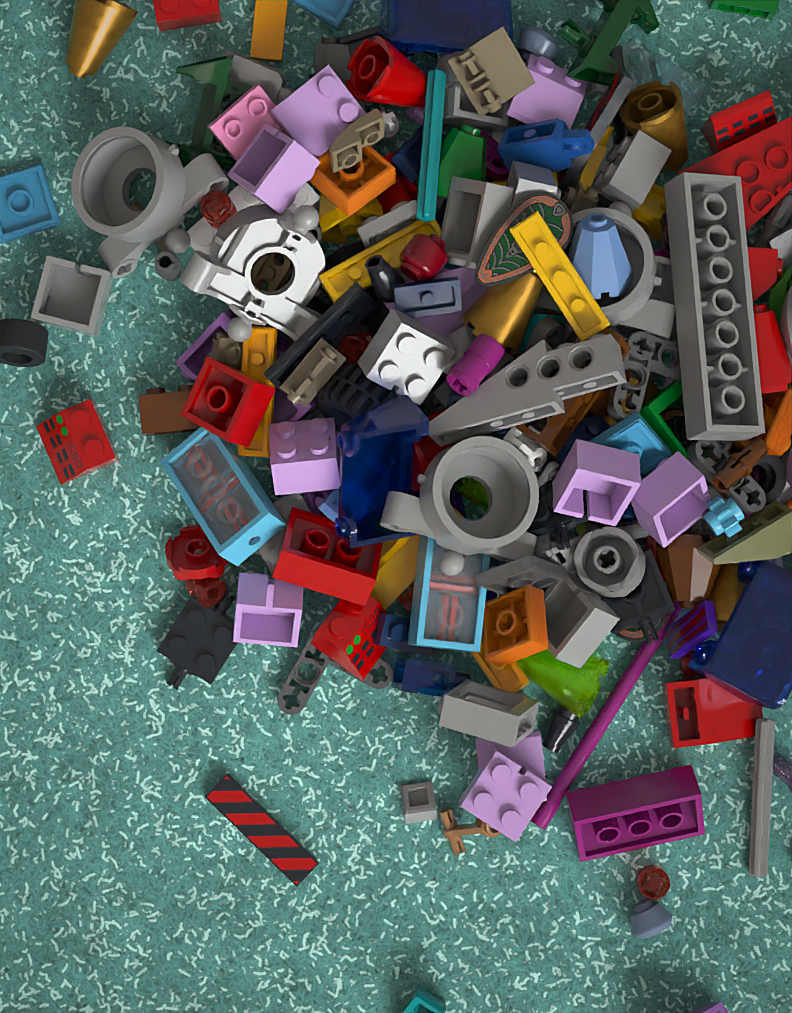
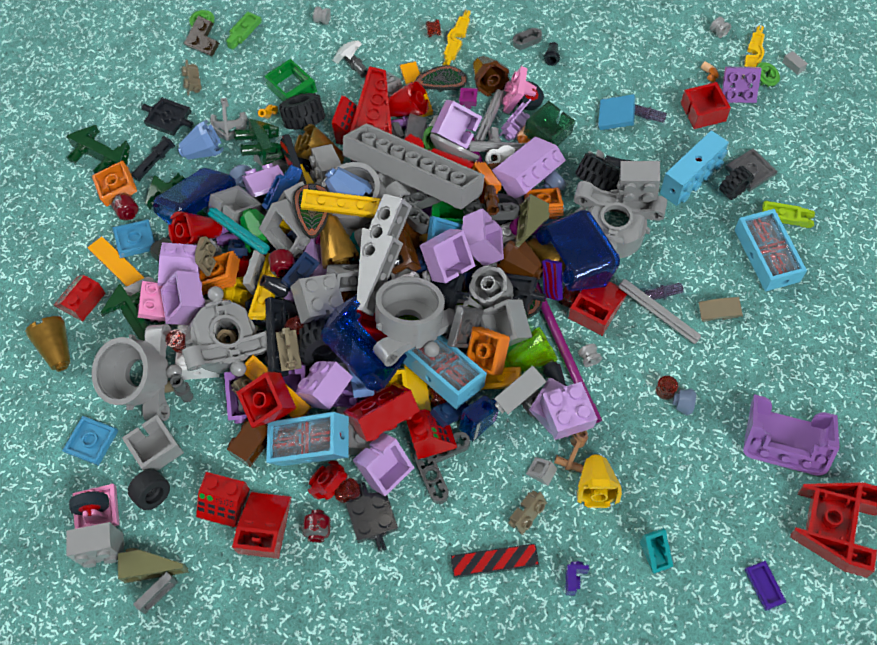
camera: 45 degrees left, 25 degrees down
(88, 519) = (262, 525): none -> red slope
(136, 585) = (316, 526): none -> dark red head
(306, 939) = (572, 581): none -> dark purple bracket
(364, 827) = (534, 504): none -> dark tan hinge
(452, 885) = (598, 484): none -> yellow cone
(475, 364) = (348, 266): magenta piece -> none
(491, 72) = (231, 187): dark tan hinge -> none
(624, 752) = (590, 355): none -> light grey wheel
(636, 813) = (625, 371): magenta slope -> none
(706, 43) = (301, 111): none -> black tyre
(723, 516) = (509, 222): medium azure gear -> none

